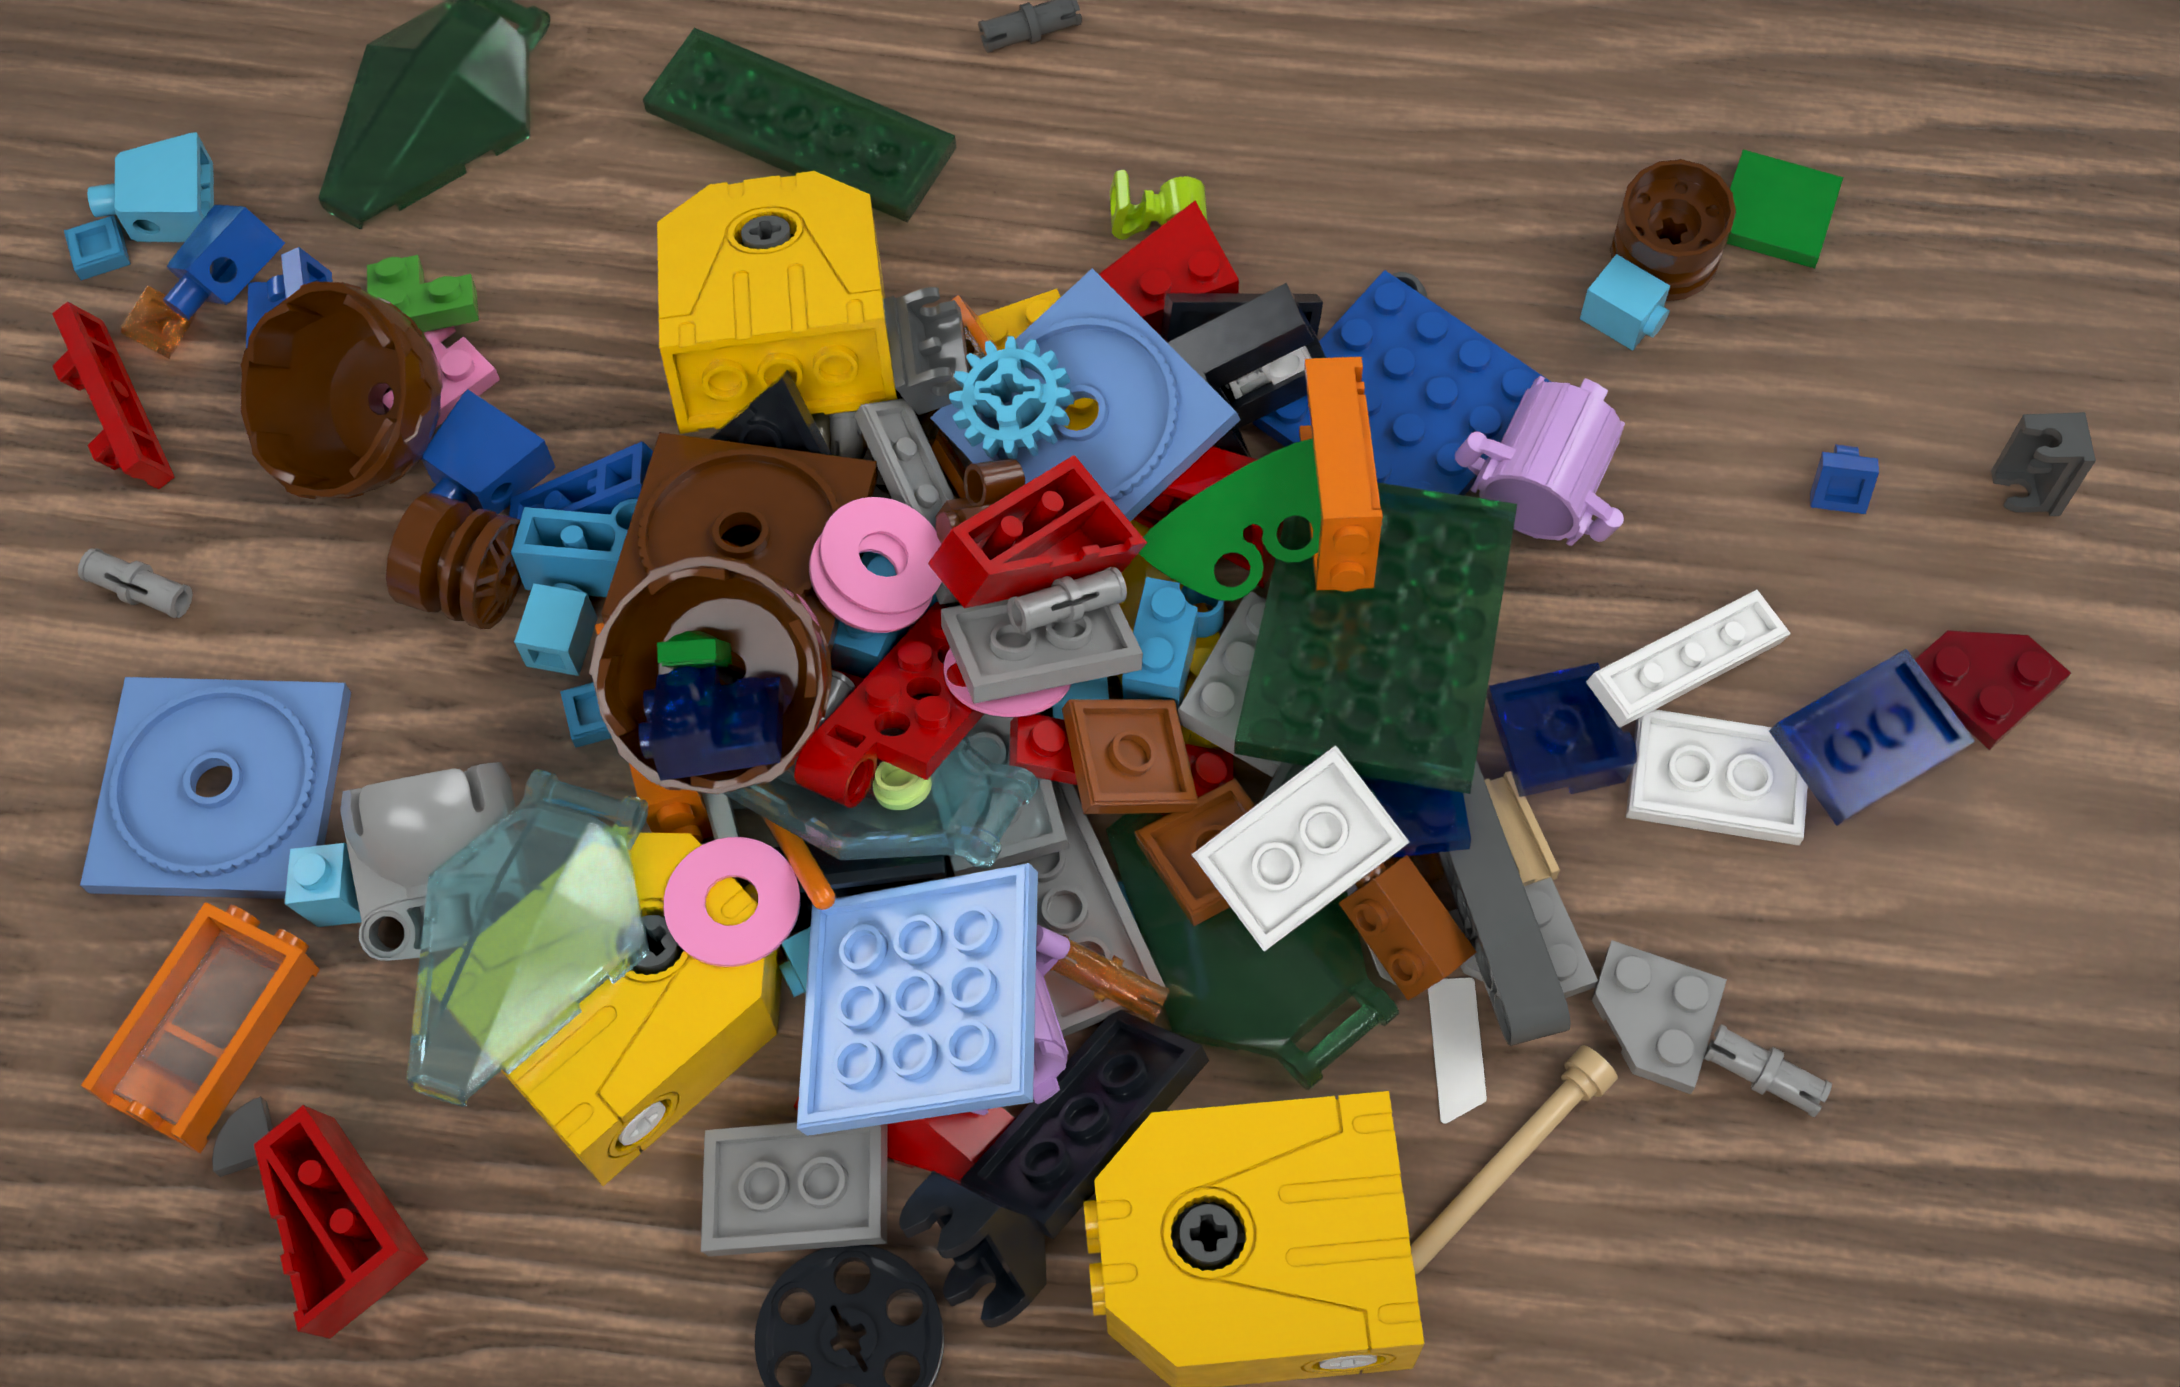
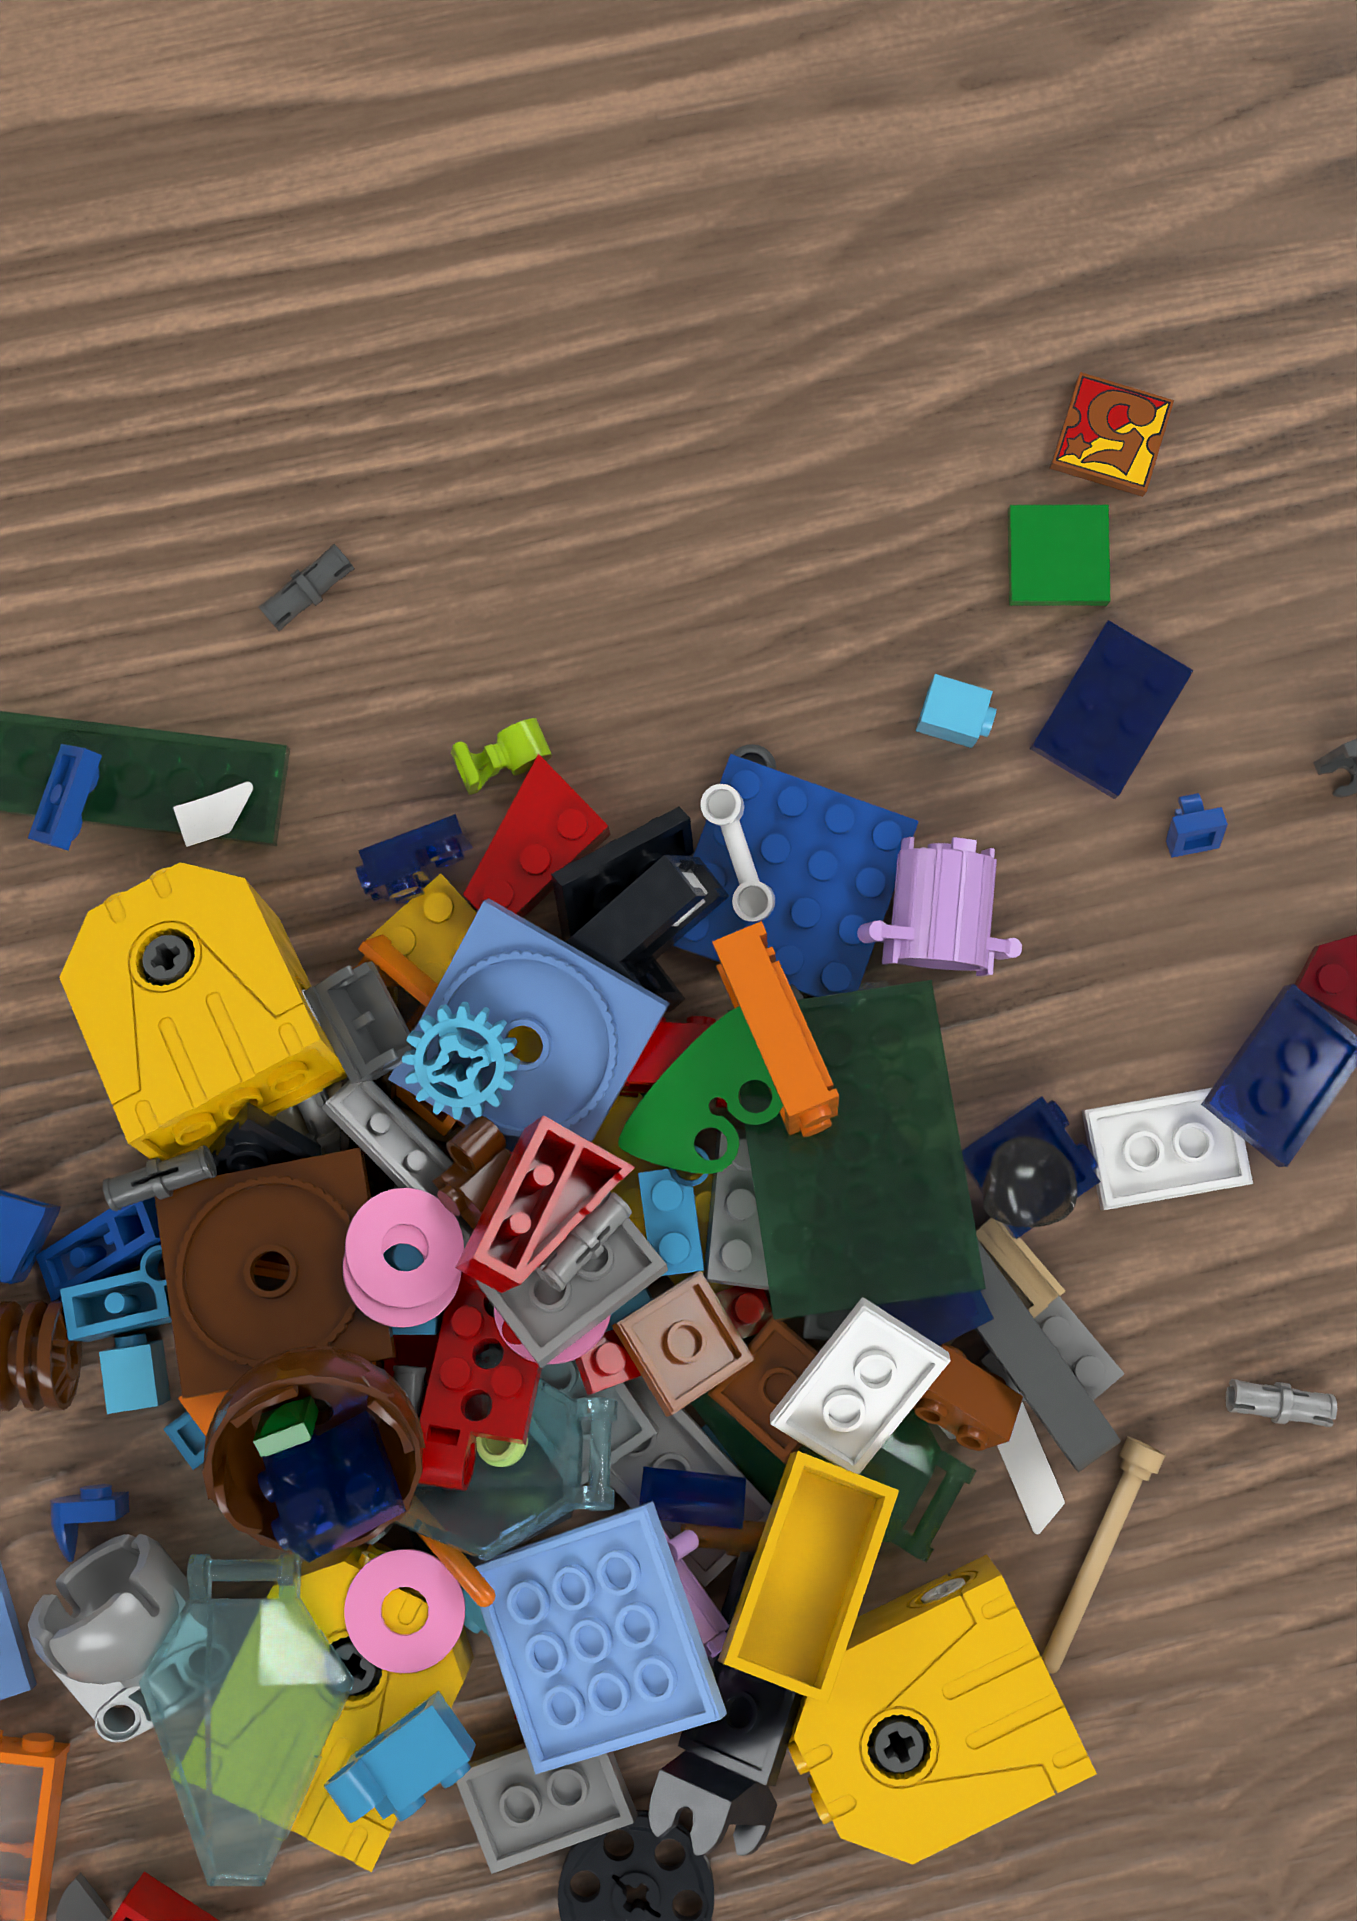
camera: 20 degrees left, 20 degrees up
(322, 885) = (37, 1693): medium azure brick -> none
(454, 735) = (93, 1504): none -> blue plate
(664, 1036) = (404, 1763): none -> dark azure hinge
(670, 416) = (159, 1178): none -> dark grey pin
(743, 94) = (64, 797): none -> blue plate
(861, 169) = (212, 815): none -> white sticker
(1035, 251) = (399, 864): none -> clear blue plate
(1086, 924) = (695, 1497): none -> clear blue tile
(1173, 1006) = (808, 1576): none -> yellow piece
(1361, 306) = (725, 807): none -> white bar
(1551, 723) = (1029, 1184): none -> clear smoke helmet
(1658, 1013) = (1179, 1380): light grey plate -> none
(1675, 224) = (981, 601): reddish brown wheel -> none
(1687, 658) = (1114, 1058): white tile -> none
(1789, 356) = (1111, 709): none -> clear blue plate
(1865, 124) = (1111, 434): none -> tile

